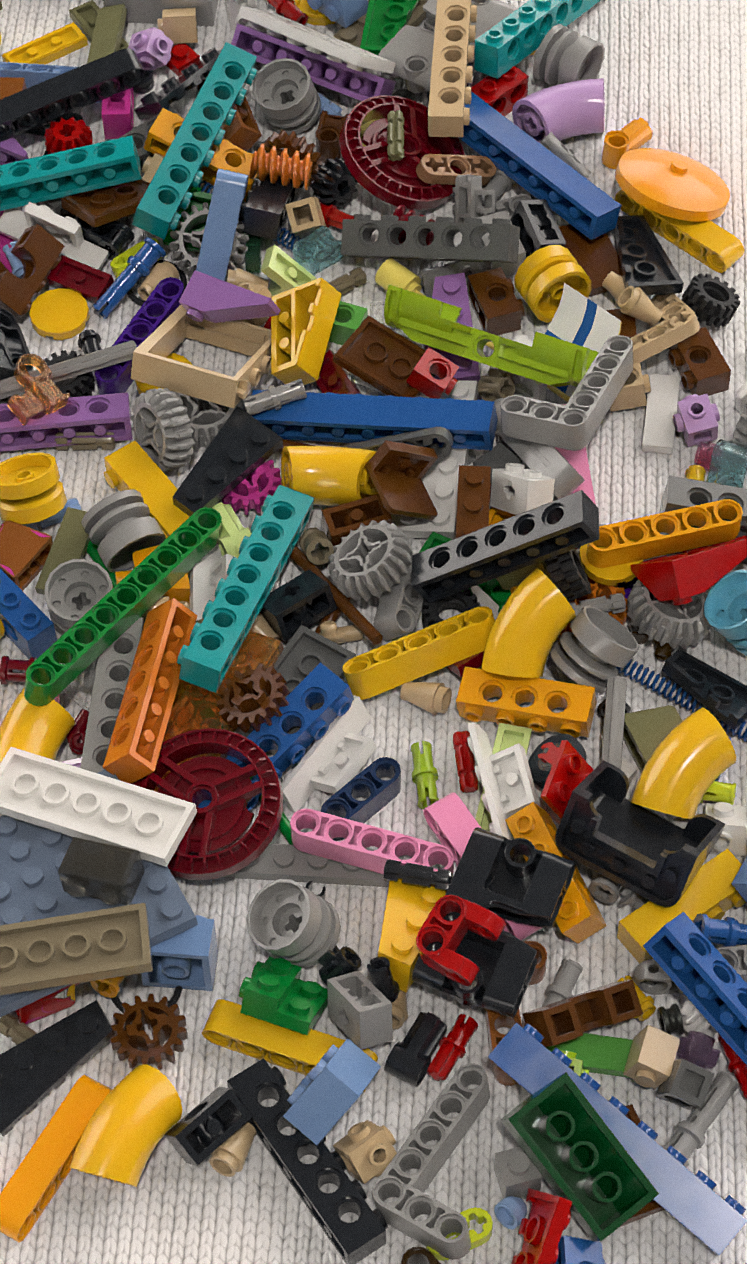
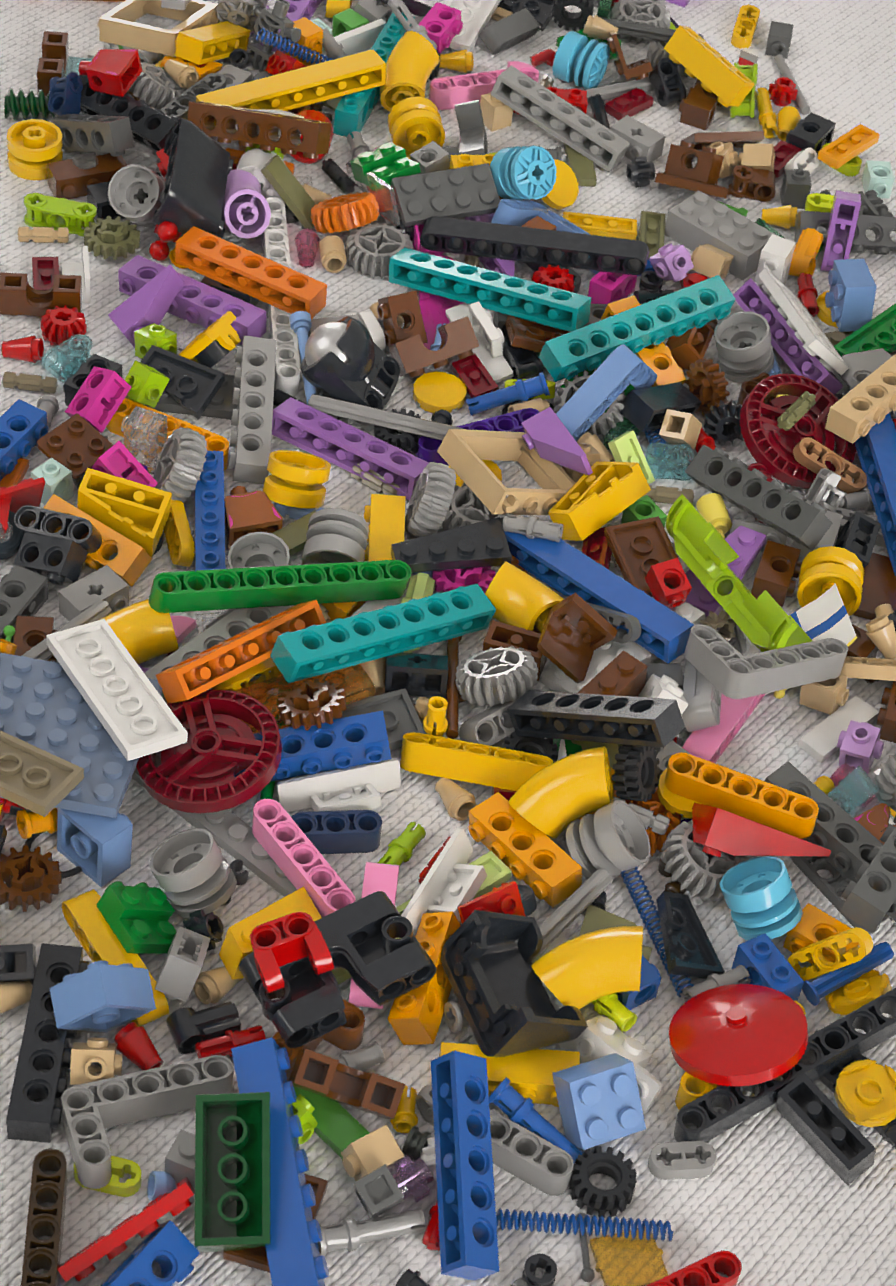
camera: 30 degrees right, 10 degrees down
(39, 390) = (364, 421): clear orange piece -> none
(101, 871) = (77, 731): clear smoke brick -> none
(107, 31) = (658, 233): olive tile -> none
(282, 166) = (687, 383): orange piece -> none
(307, 543) = (462, 650): dark tan bush -> none
(357, 639) = (436, 713): none -> yellow pin
(382, 978) = (216, 959): black pin -> none
(384, 1108) = (137, 1047): none -> red cone
(417, 874) = (310, 896): black axle -> none

